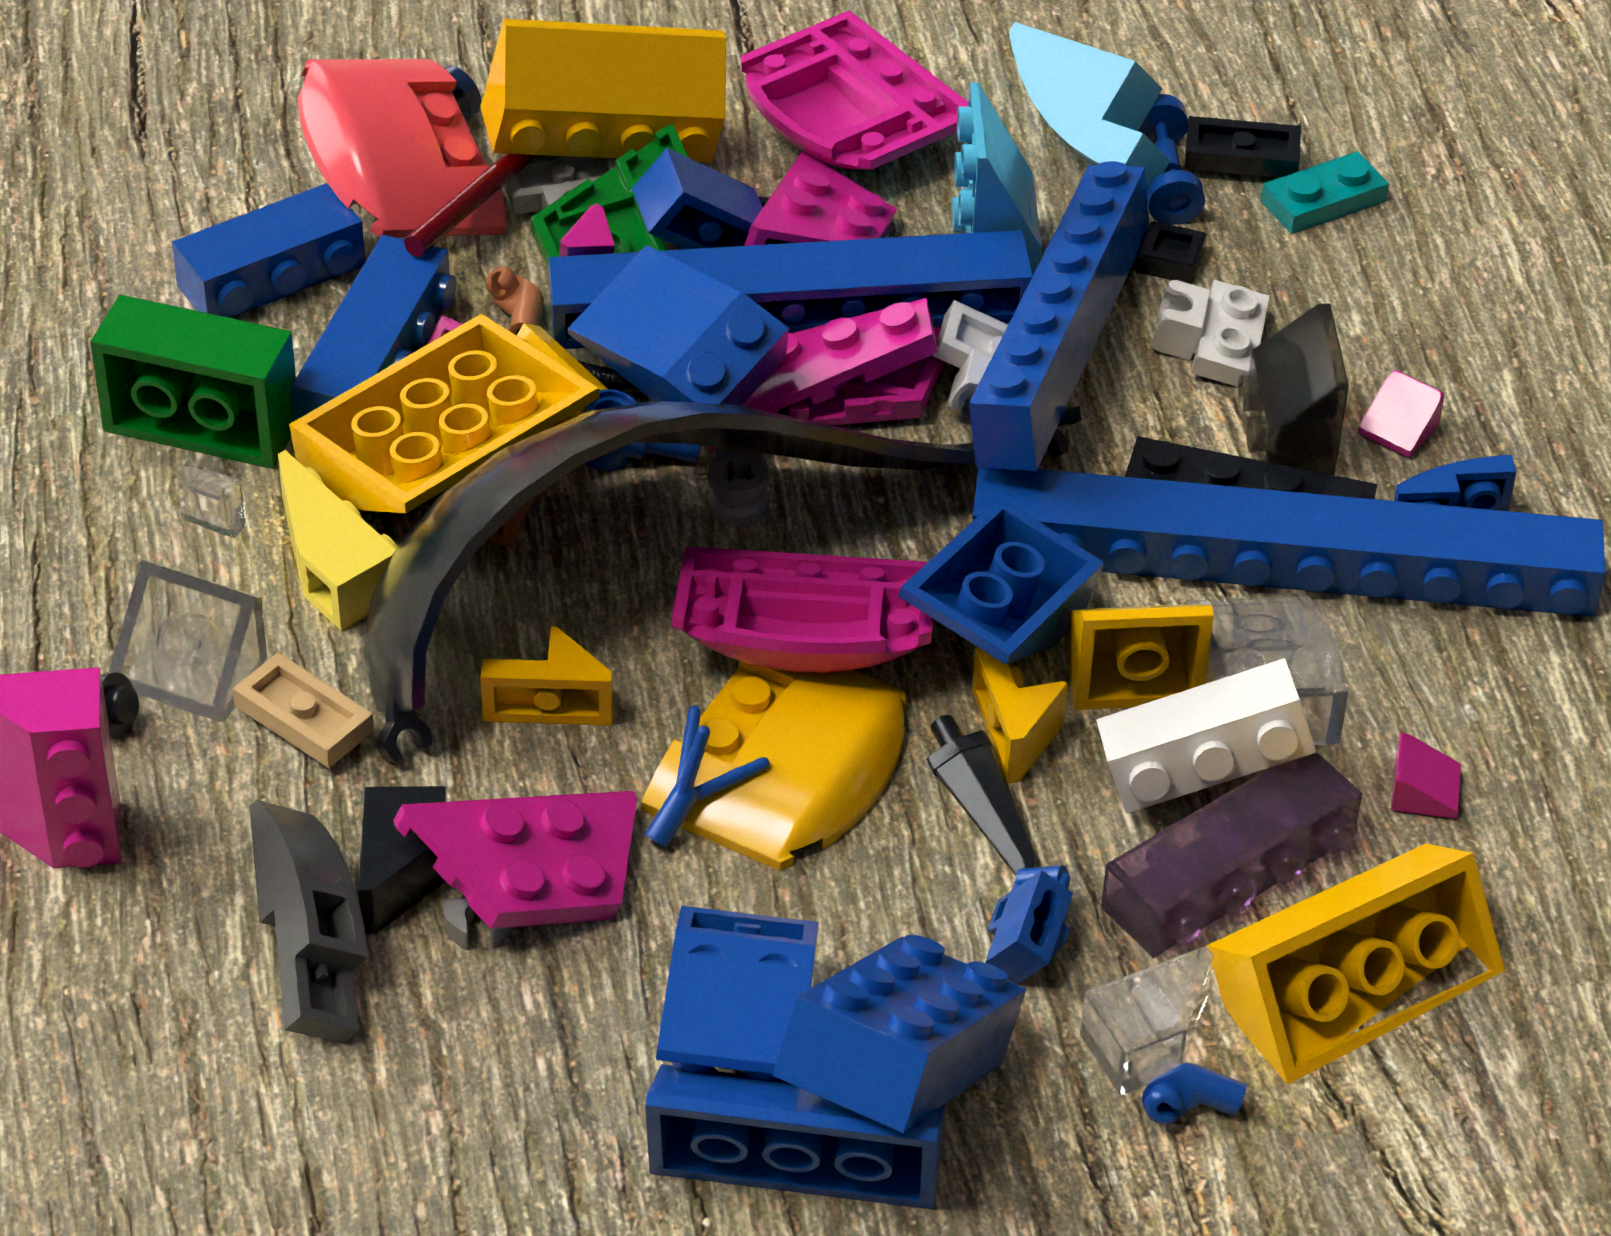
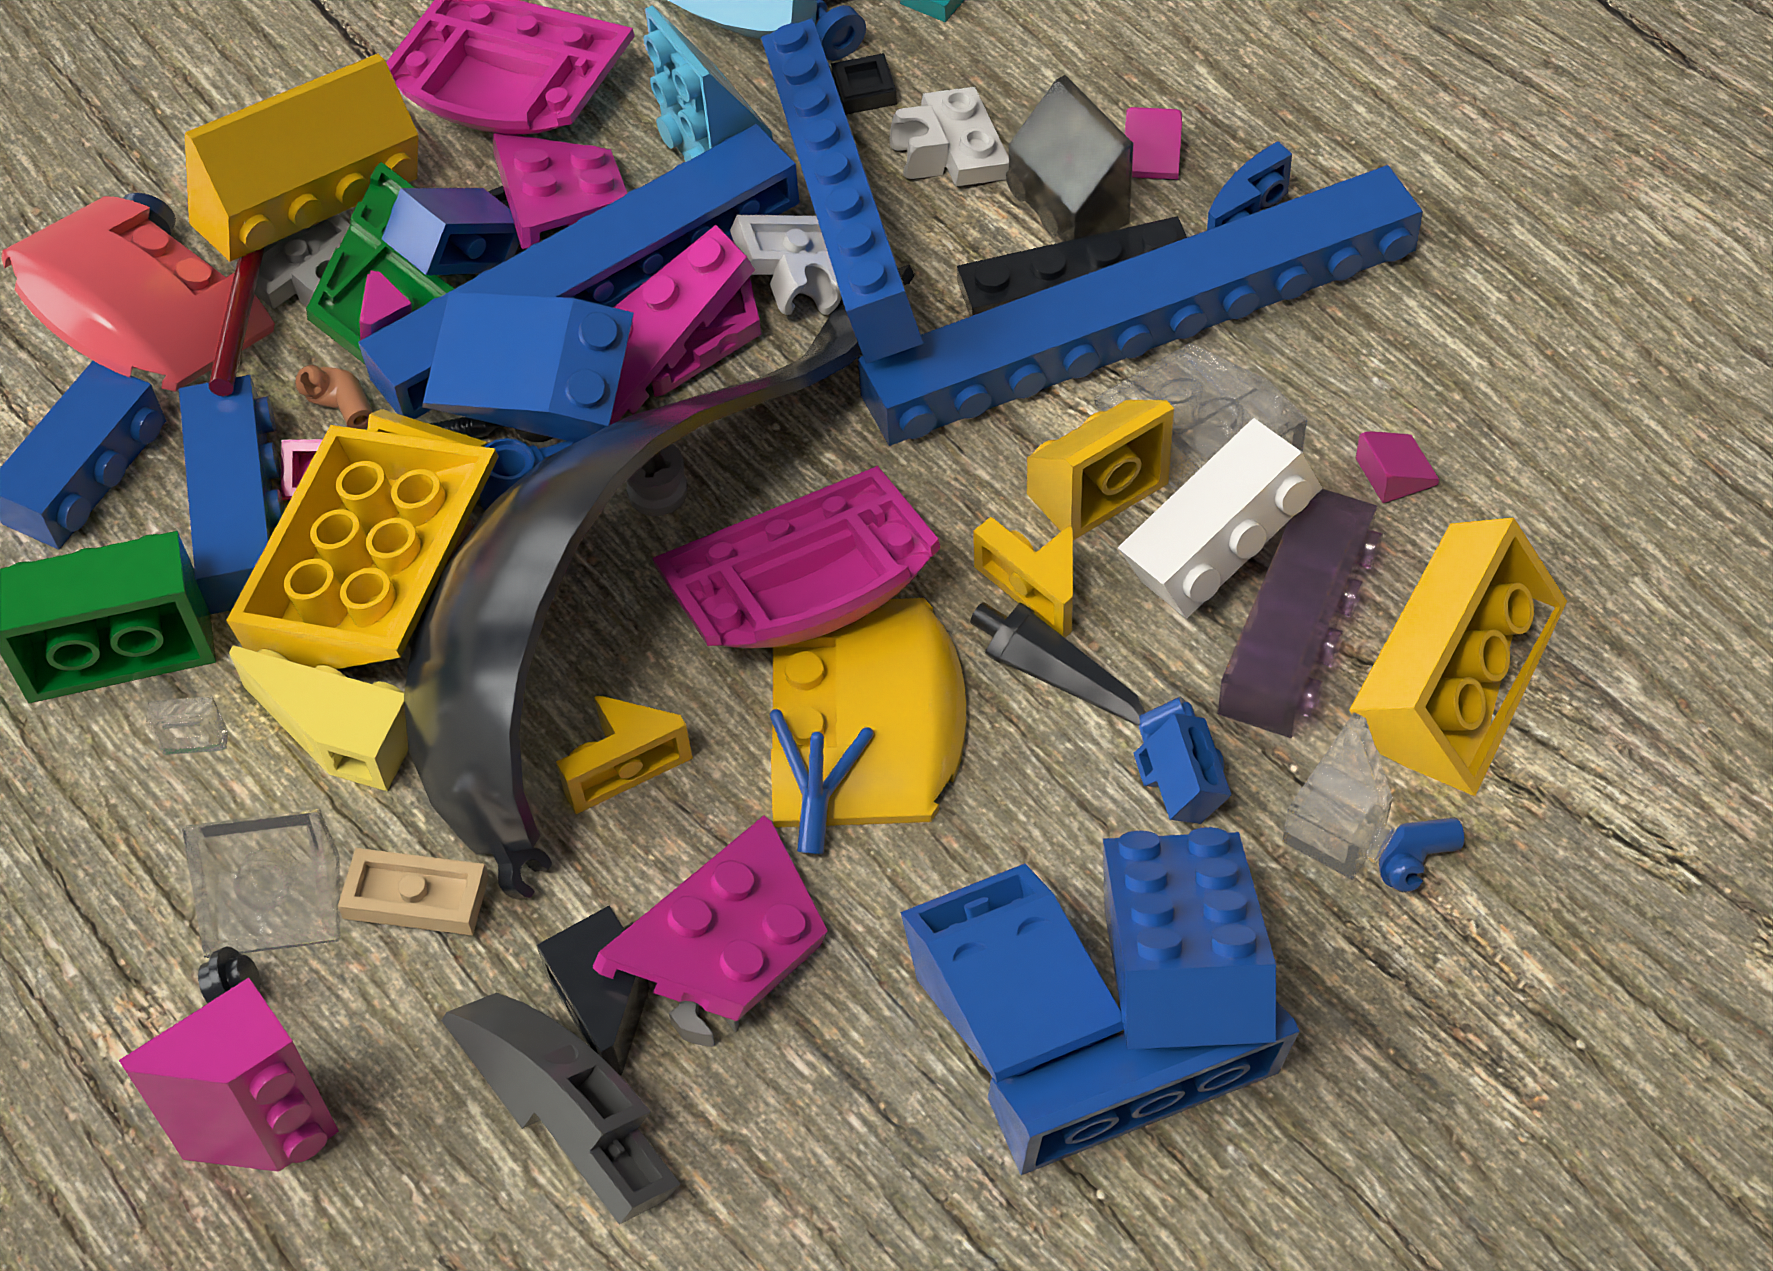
camera: 25 degrees left, 10 degrees up
(1005, 583) = (965, 461): blue slope -> none

